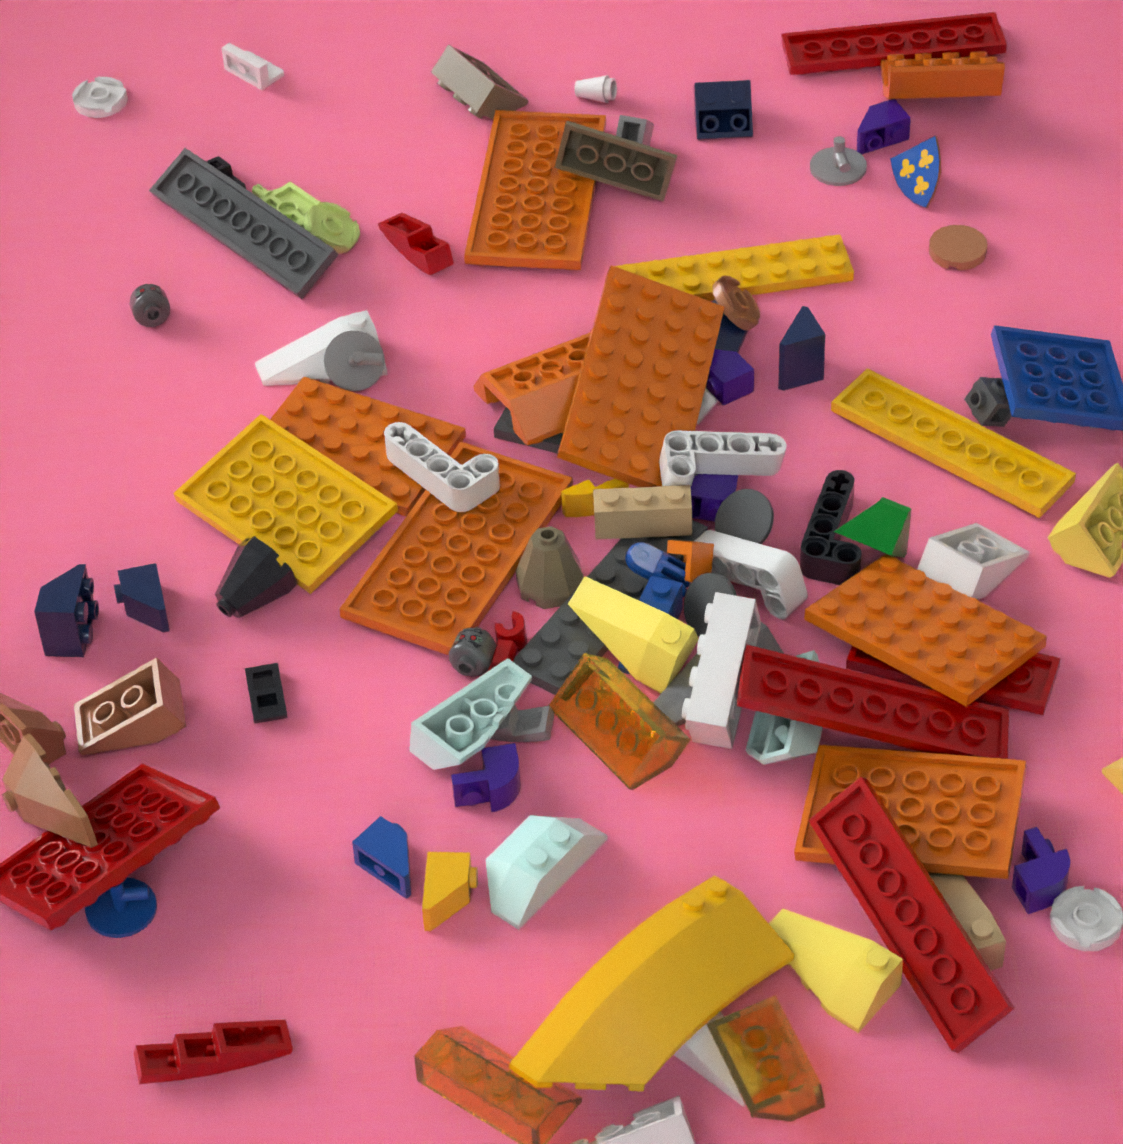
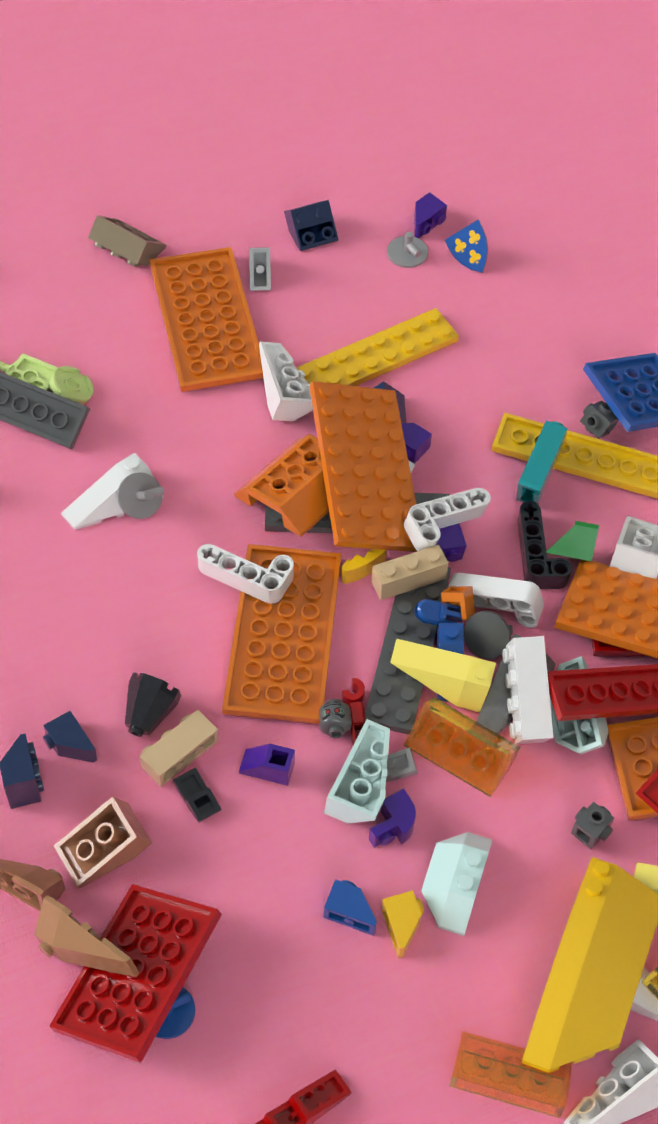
camera: 25 degrees left, 10 degrees up
(268, 637) = (178, 747): none -> tan brick
(287, 498) = (142, 629): yellow plate -> none
(352, 430) = (159, 565): orange plate -> none
(369, 680) = (269, 763): none -> dark purple slope
(417, 243) = (139, 383): red slope -> none
(548, 569) = (359, 636): dark tan cone -> none
(592, 261) = (285, 386): none -> white wedge
(597, 88) = (214, 225): white cone -> none
(615, 161) = (260, 286): dark tan slope -> none
(738, 305) = (395, 381): nougat tile -> none
(739, 846) = (592, 825): none -> dark grey brick
(745, 516) = (480, 557): dark grey shield -> none
(801, 352) = (460, 410): dark blue slope -> none
(869, 44) = (402, 146): red plate -> none
(879, 430) = (541, 462): none -> teal slope
(941, 76) = (452, 167): orange slope -> none
(958, 247) = (518, 299): nougat tile -> none

